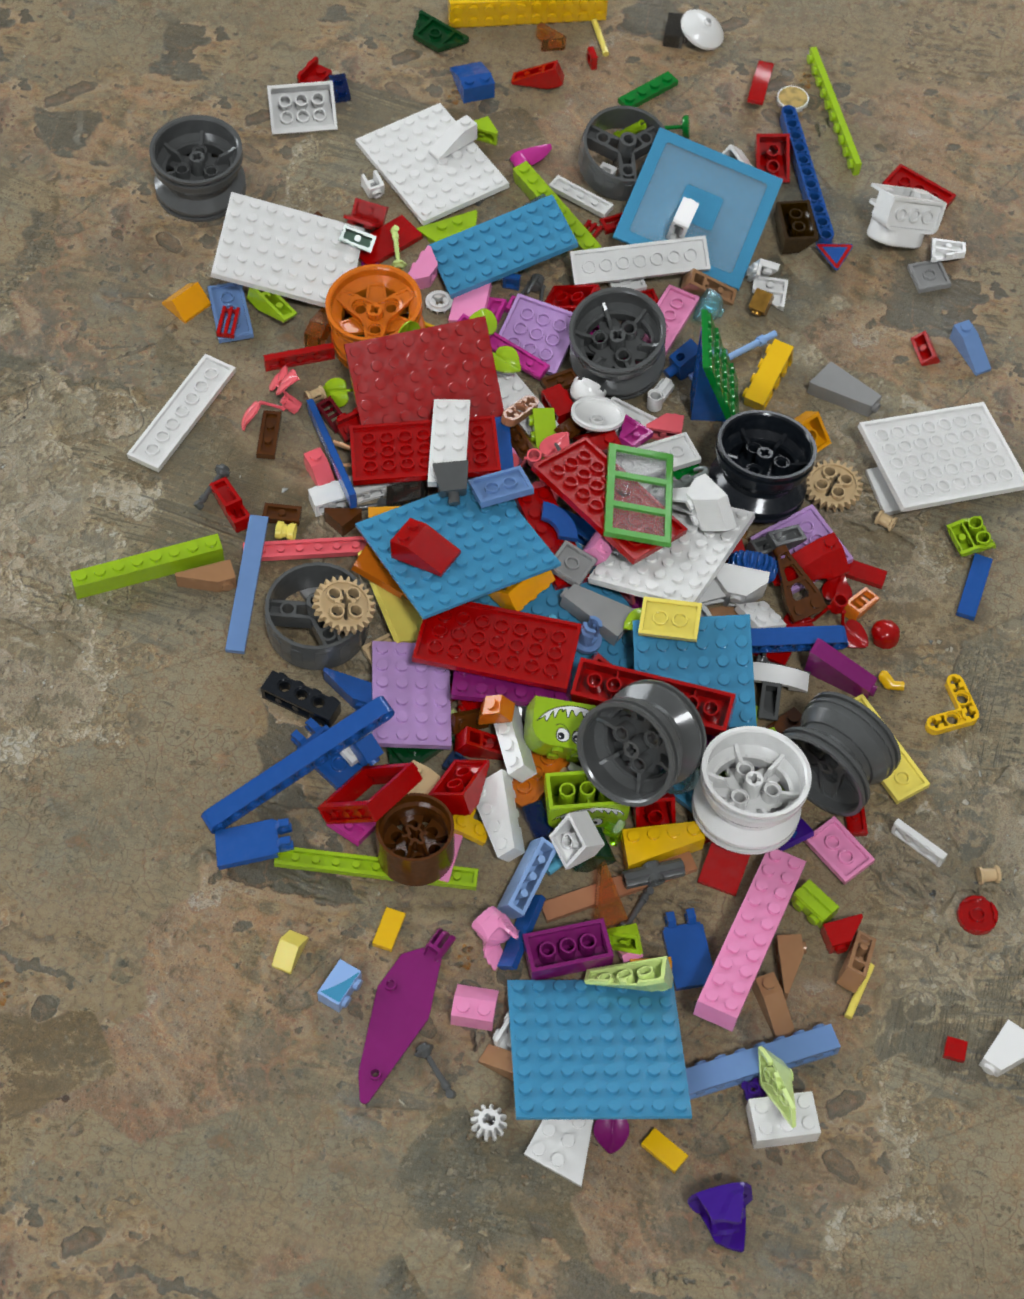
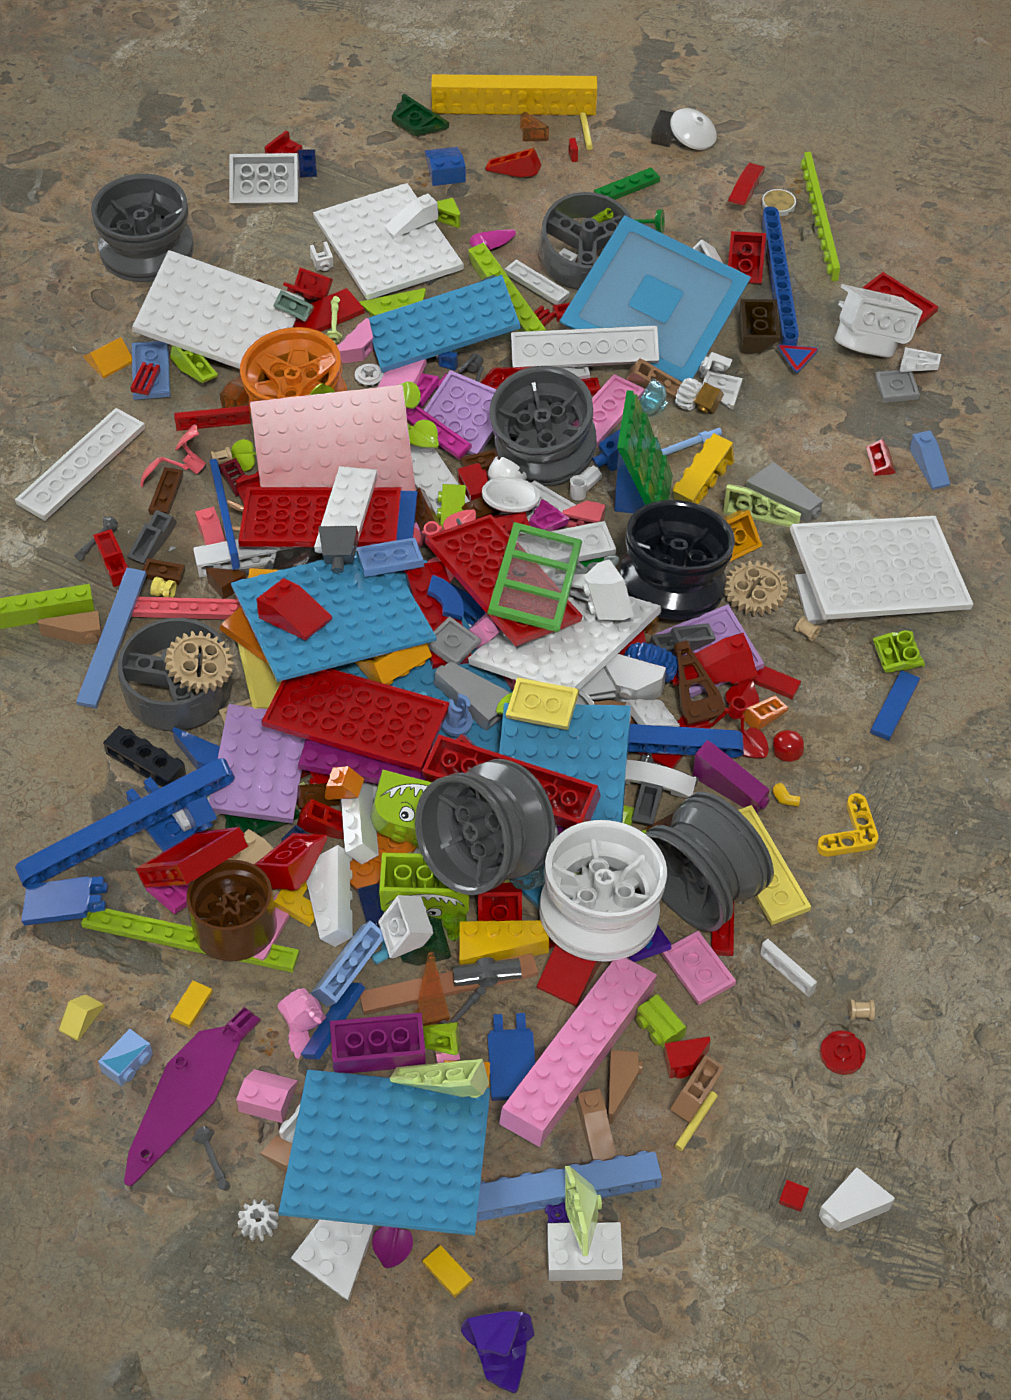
camera: 10 degrees right, 5 degrees down
(265, 481) = (152, 537): none -> dark grey slope
(508, 420) = (435, 480): nougat beam -> none
(682, 219) = (635, 307): white slope -> none
(742, 299) = (687, 393): none -> white gear
(828, 407) = (760, 506): none -> yellowish green wedge

